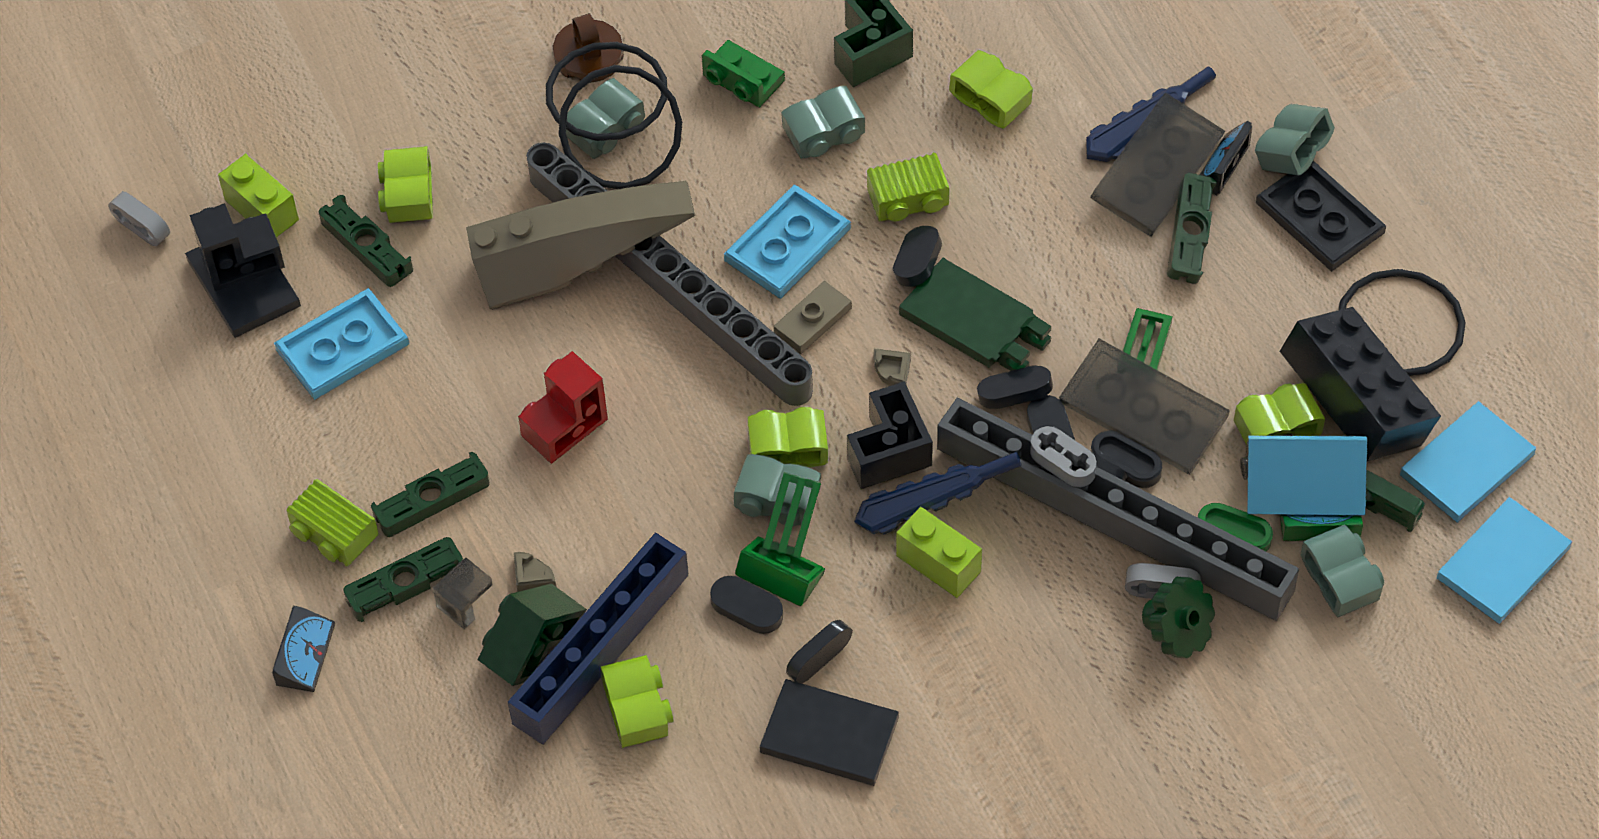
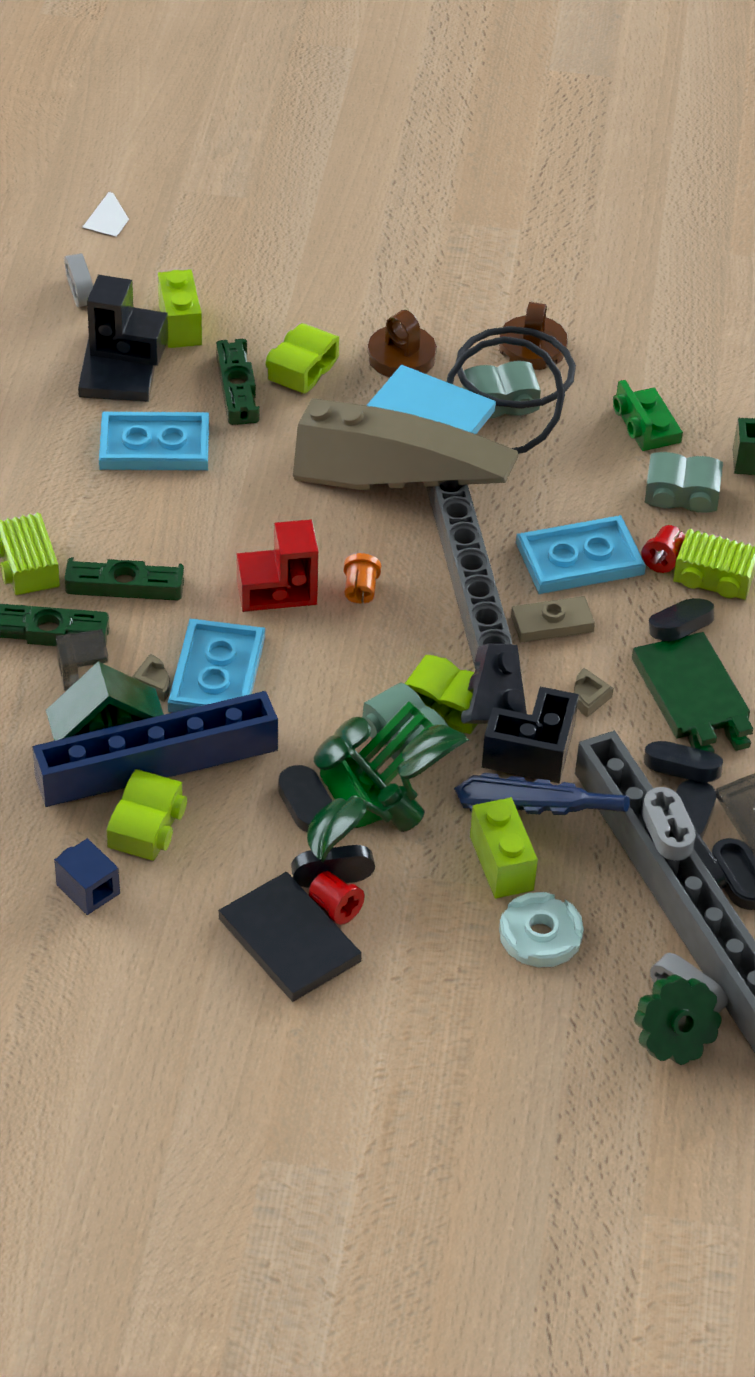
camera: 30 degrees right, 10 degrees down
(100, 133) = (107, 217): none -> white sticker
(482, 124) = (401, 345): none -> reddish brown tile
(568, 171) = (433, 399): none -> medium azure tile
(577, 531) = (215, 663): none -> medium azure tile
(629, 368) = (361, 576): none -> orange bush
(632, 784) = (87, 876): none -> dark blue brick
(805, 612) = (396, 801): none -> dark green plant
(828, 411) = (495, 683): none -> black wing
(842, 676) = (337, 897): none -> red bush
(855, 199) = (668, 547): none -> red bush
(1009, 622) = (538, 948): none -> light aqua tile

